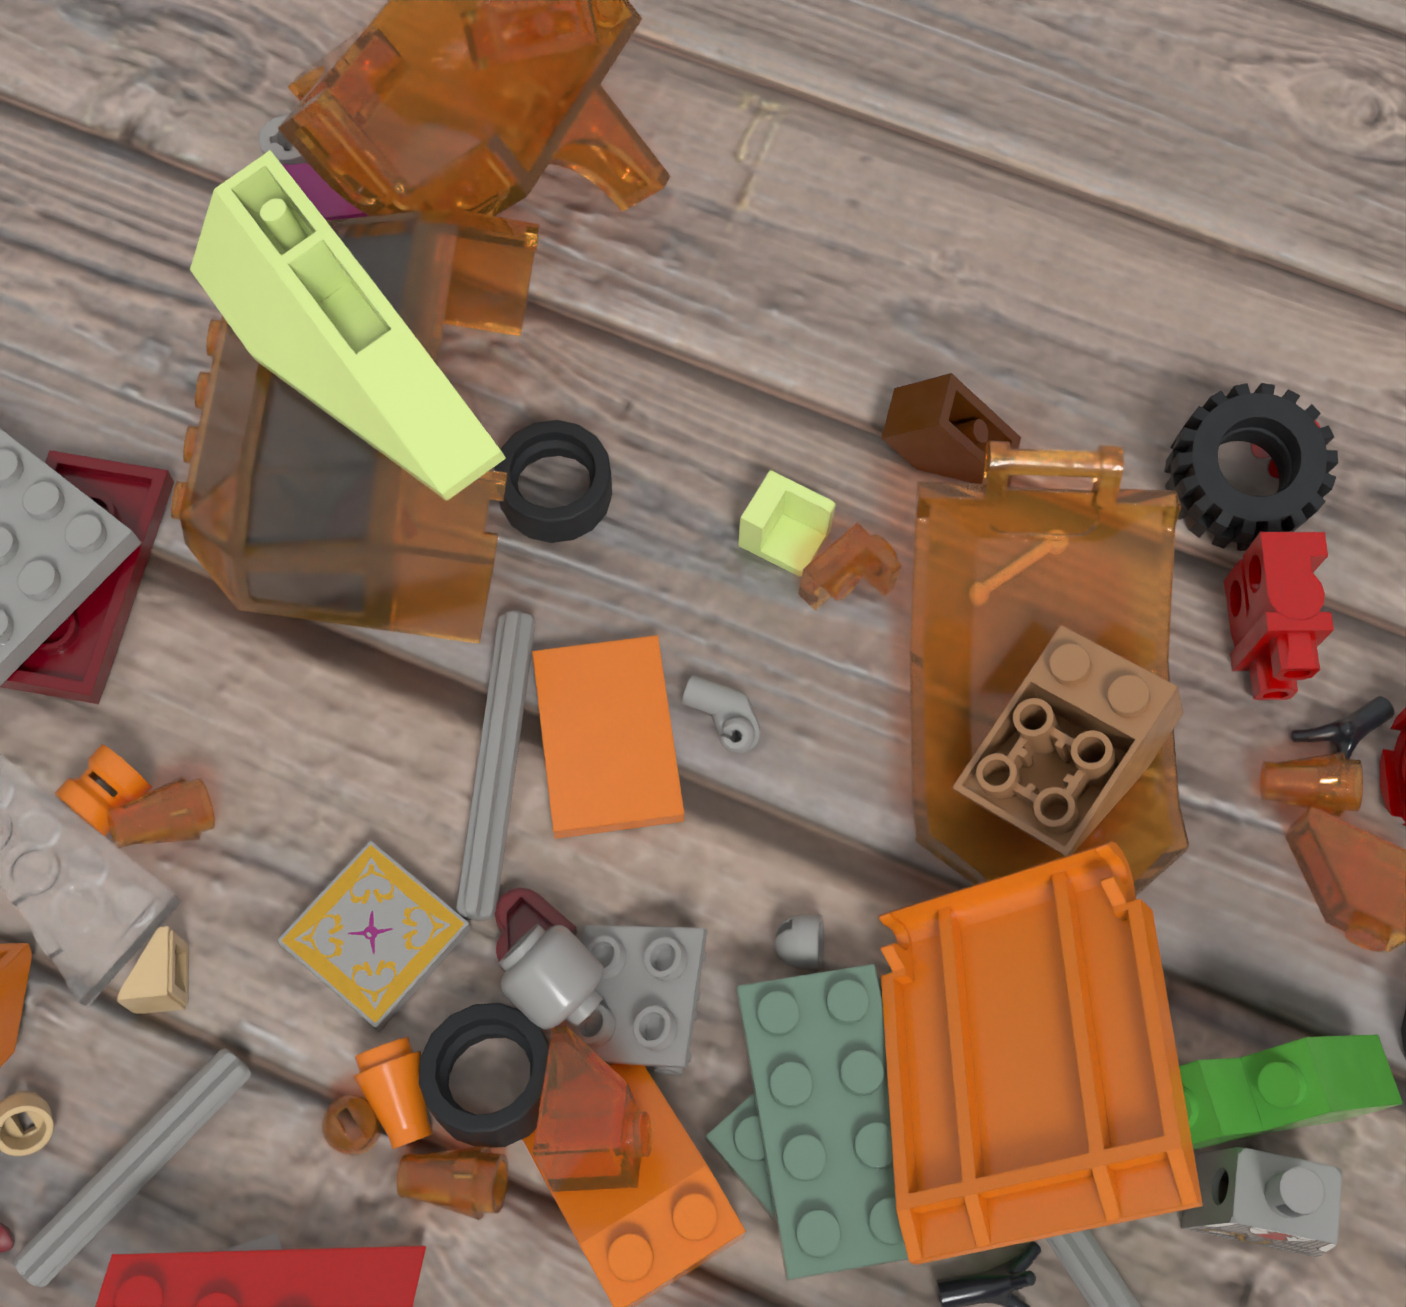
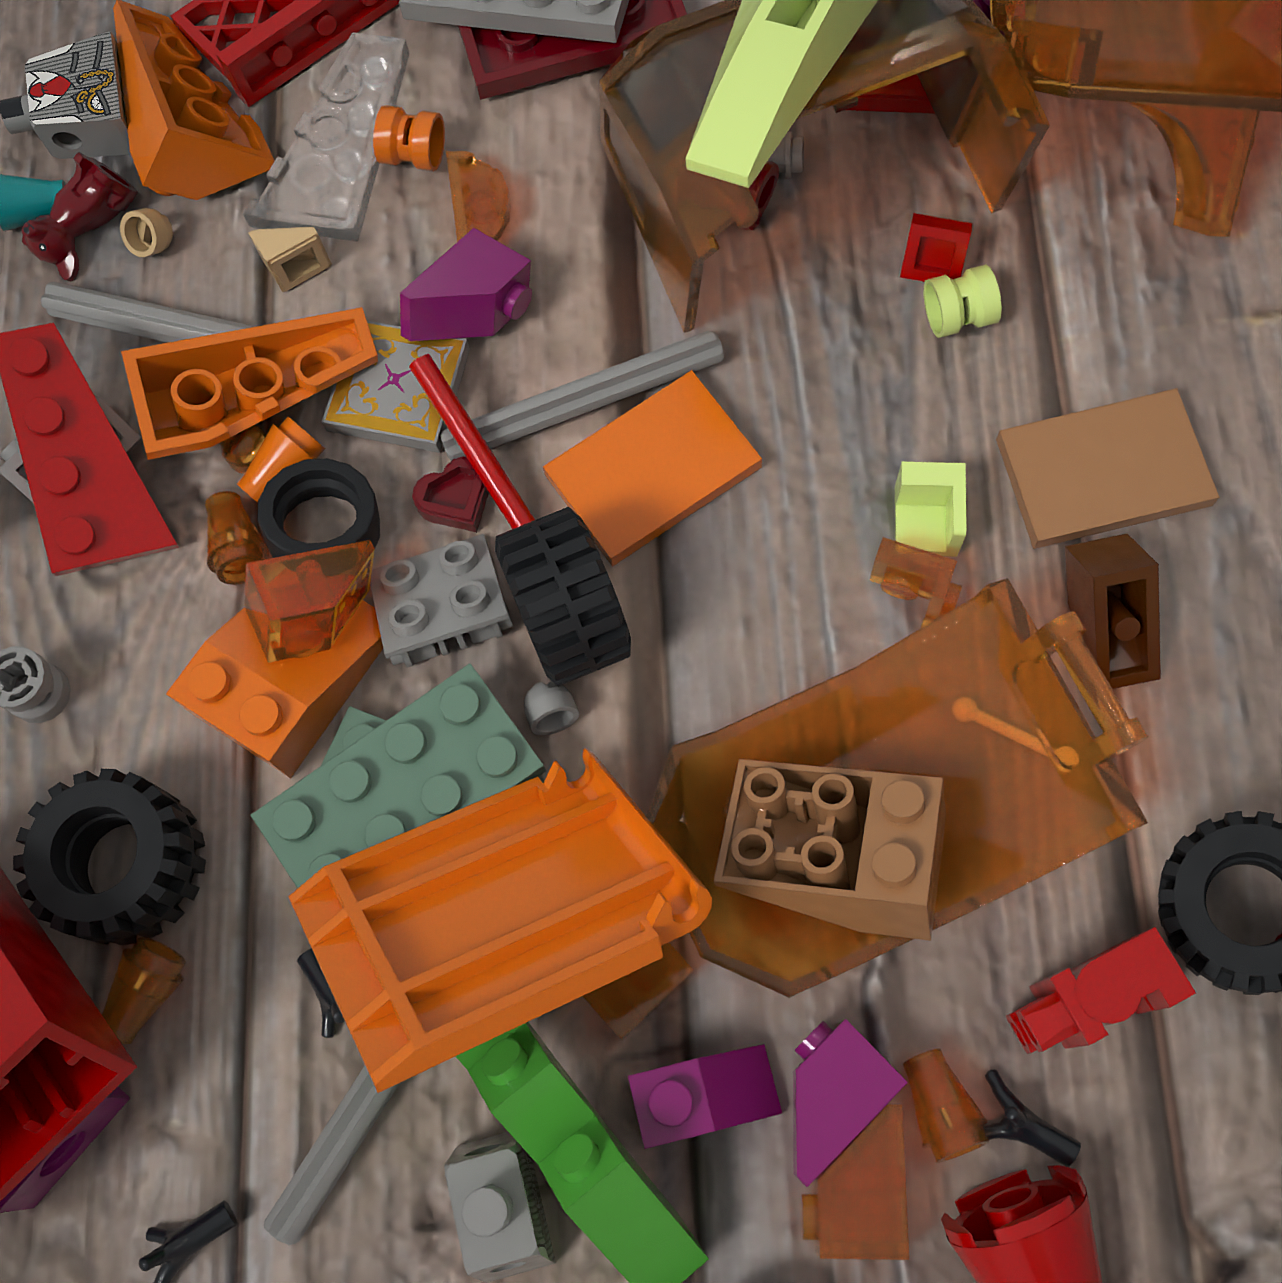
camera: 75 degrees right, 5 degrees up
(163, 815) = (410, 187): clear orange cone -> none
(222, 756) = (478, 195): none -> clear orange plate
(289, 1102) = (225, 382): none -> orange wedge
(329, 807) = (467, 291): none -> magenta slope
(520, 882) = (471, 441): none -> red bar
(540, 389) = (935, 248): none -> red tile
(551, 440) = (861, 265): black tyre -> none
(552, 977) = (409, 518): light grey head -> none
(605, 391) = (962, 301): none -> yellowish green wheel
(721, 862) = (564, 596): none -> black tyre
(730, 711) = (727, 553): light grey arm -> none
(816, 378) = (1106, 468): none -> medium nougat tile
(1231, 980) = (704, 1095): none -> magenta slope
(1276, 865) = (836, 1095): none -> magenta slope

